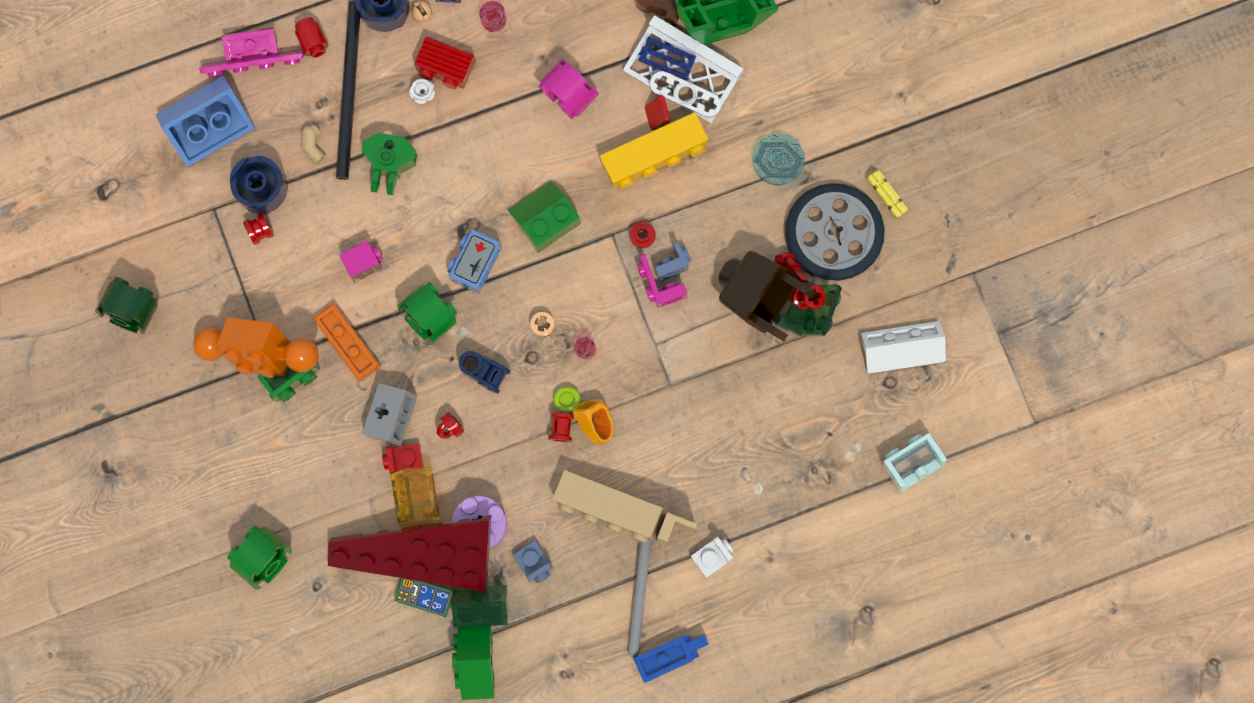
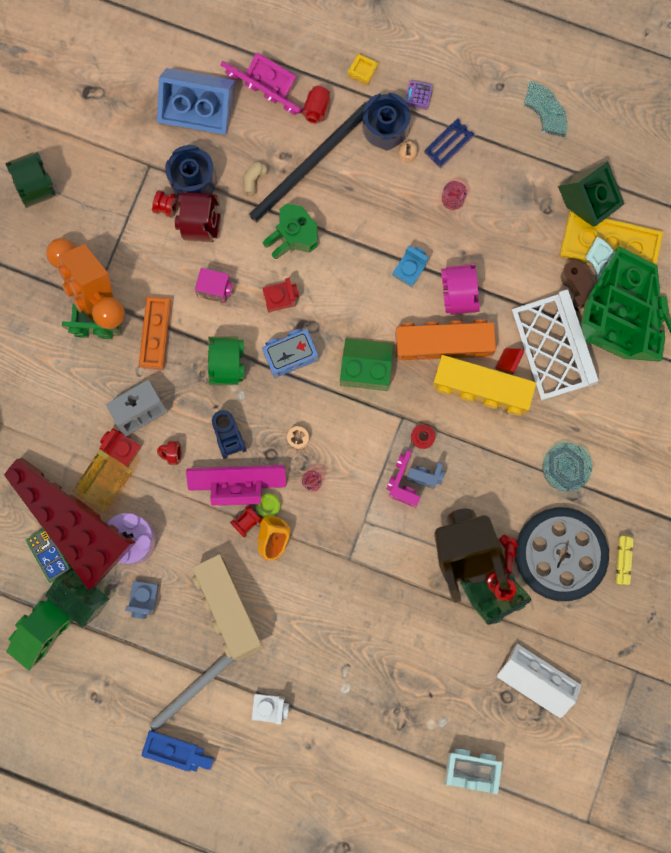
camera: 40 degrees right, 0 degrees up
(299, 215) = (198, 216): none -> dark red brick
(421, 84) = (359, 199): white plate -> none
(424, 221) = (280, 295): none -> red bracket
(444, 63) = (391, 199): red brick -> none
(509, 104) = (411, 266): none -> dark azure bracket
(526, 404) = (236, 484): none -> dark pink bracket
(595, 138) = (451, 340): none -> orange brick
(646, 50) = (541, 309): clear blue tile -> none
(668, 525) = (259, 658): tan panel -> none
(671, 79) = (528, 351): white beam -> none

